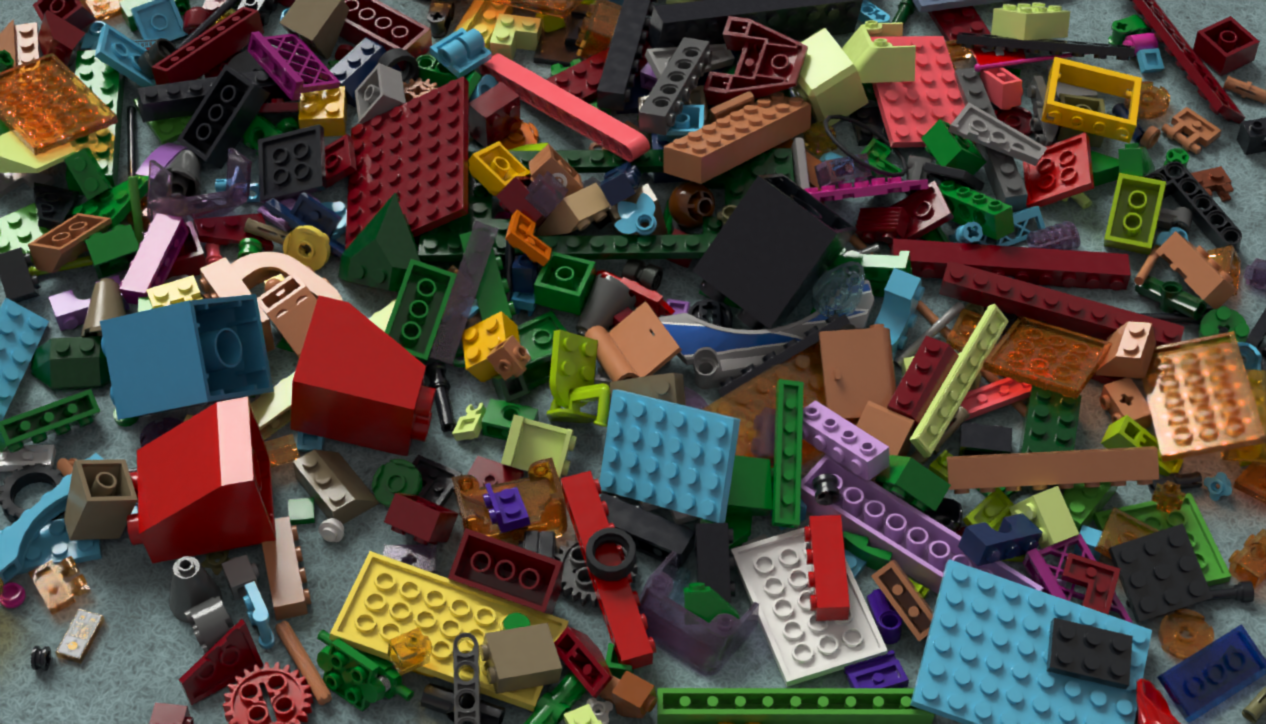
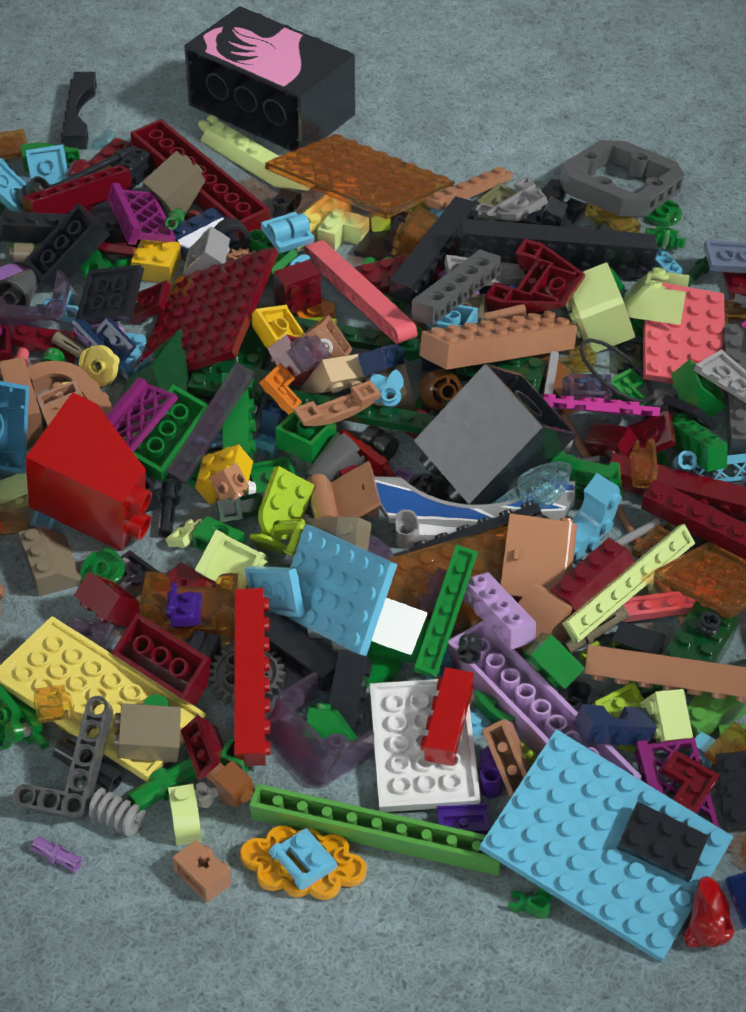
camera: 15 degrees right, 5 degrees down
(169, 130) = (21, 251): none -> dark tan brick
(301, 511) = (15, 576): tile -> none
(330, 59) = (175, 218): none -> green pin
(331, 530) = (33, 596): white plate -> none
(372, 284) = (136, 400): none -> magenta fence
(597, 247) = (339, 409): none -> nougat slope
(607, 464) = (280, 586): none -> medium azure plate
(611, 535) = (256, 676): black tyre -> none
(931, 246) = (643, 464): none -> clear orange hinge
(1056, 414) = (704, 626): none -> black bush

